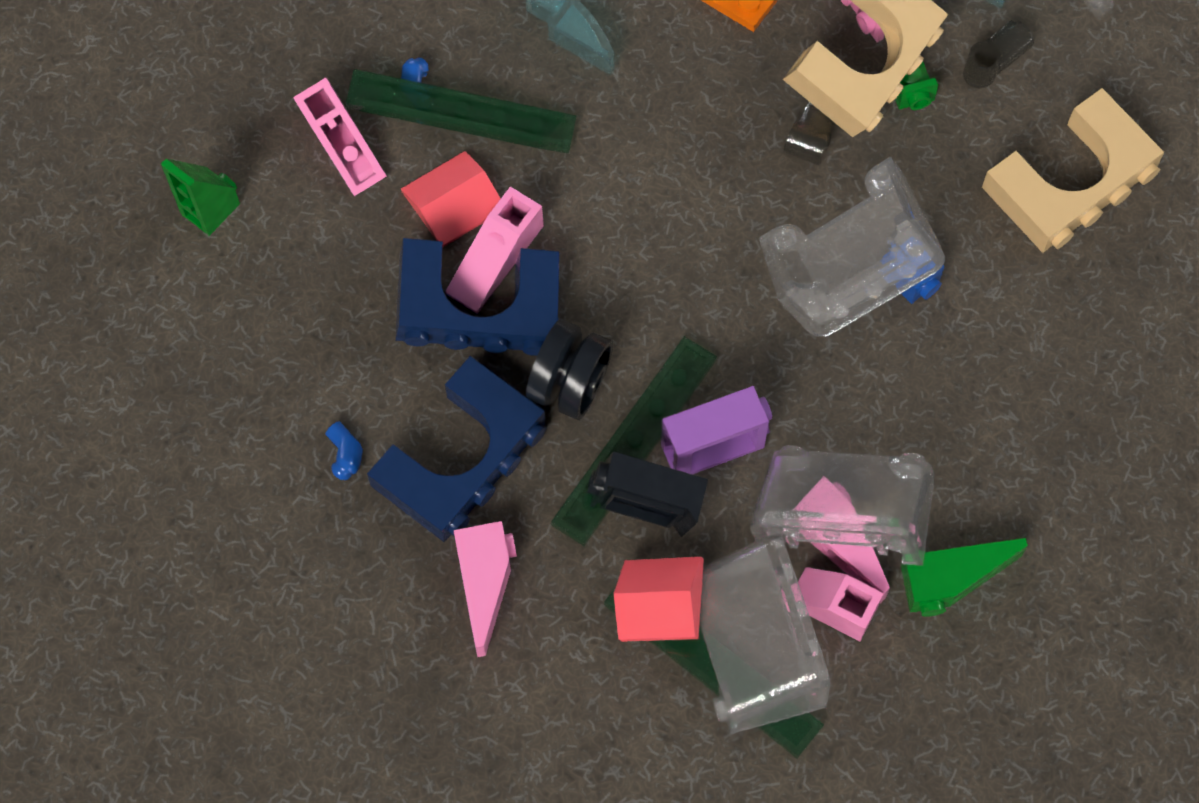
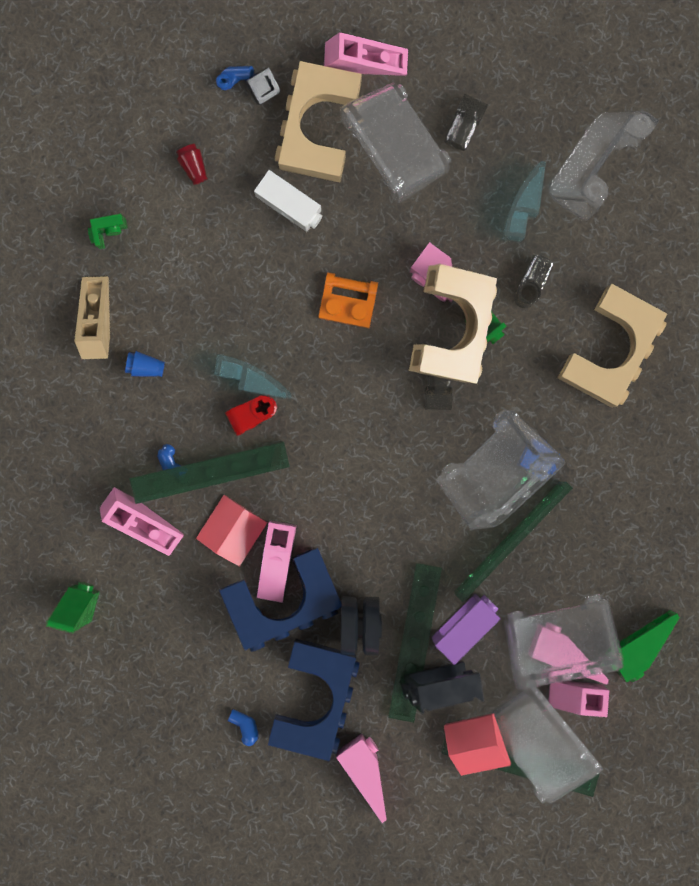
camera: 25 degrees left, 20 degrees up
(547, 64) = (247, 415): none -> red piece
(840, 353) = (512, 540): none -> clear green tile

